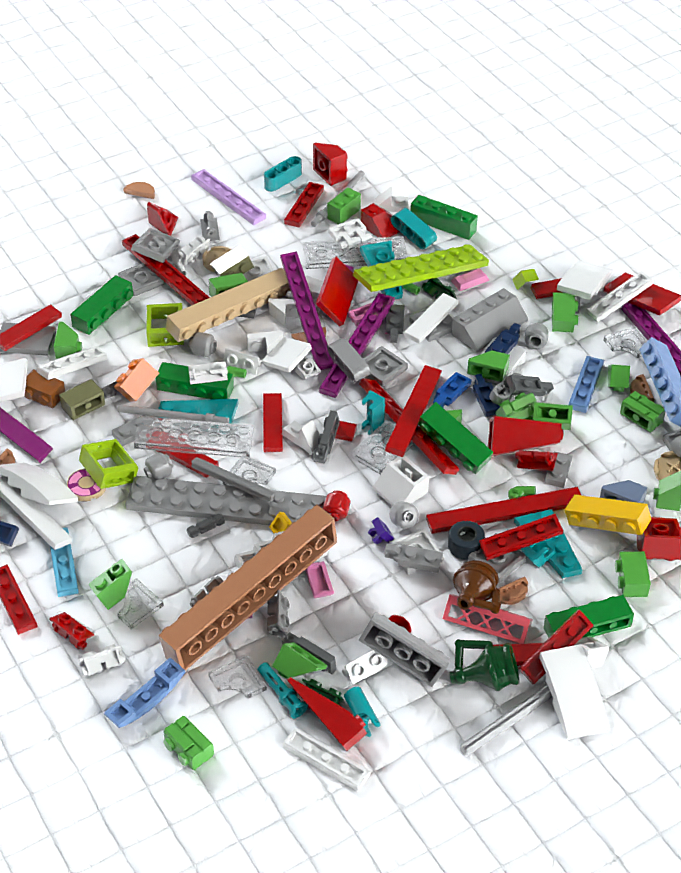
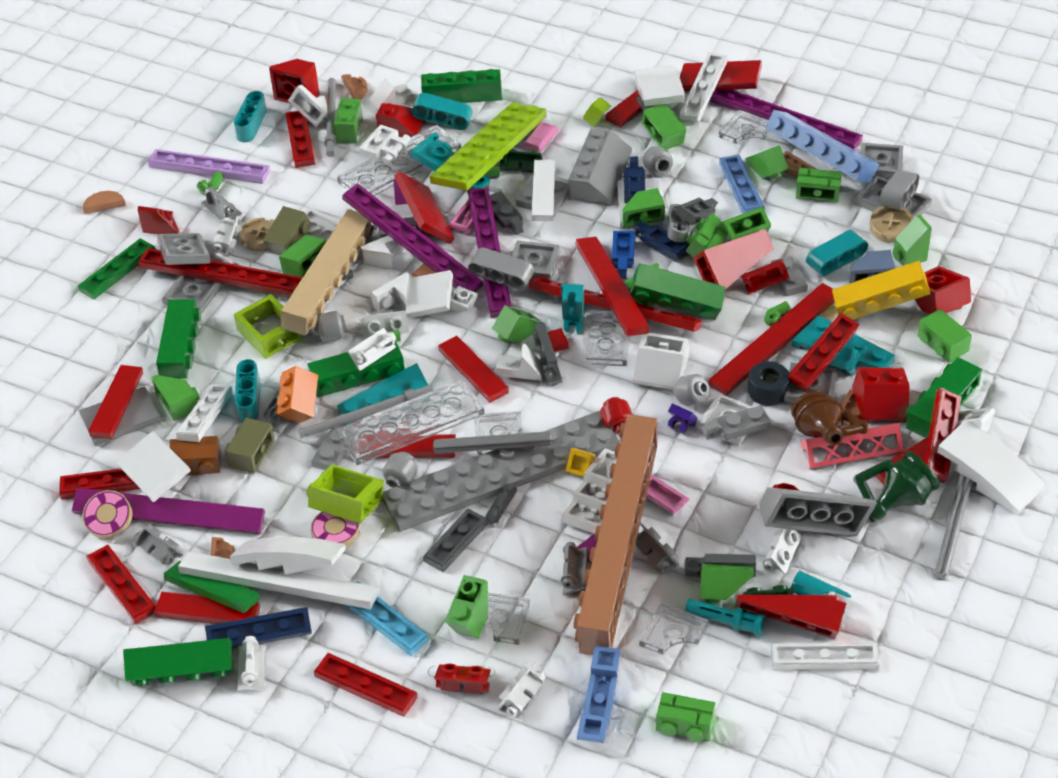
camera: 30 degrees left, 0 degrees up
(106, 240) = (114, 270): none -> green tile
(113, 362) = (247, 390): none -> teal beam
(154, 534) = (455, 540): none -> dark grey tile
(219, 210) = (214, 183): none -> bright green arm
(323, 401) = (515, 324): none -> bright green slope
(326, 185) = (309, 106): none -> white slope
(374, 185) = (356, 86): none -> nougat tile
(540, 591) = (881, 394): none -> red slope
(609, 469) = (837, 252): none -> teal beam

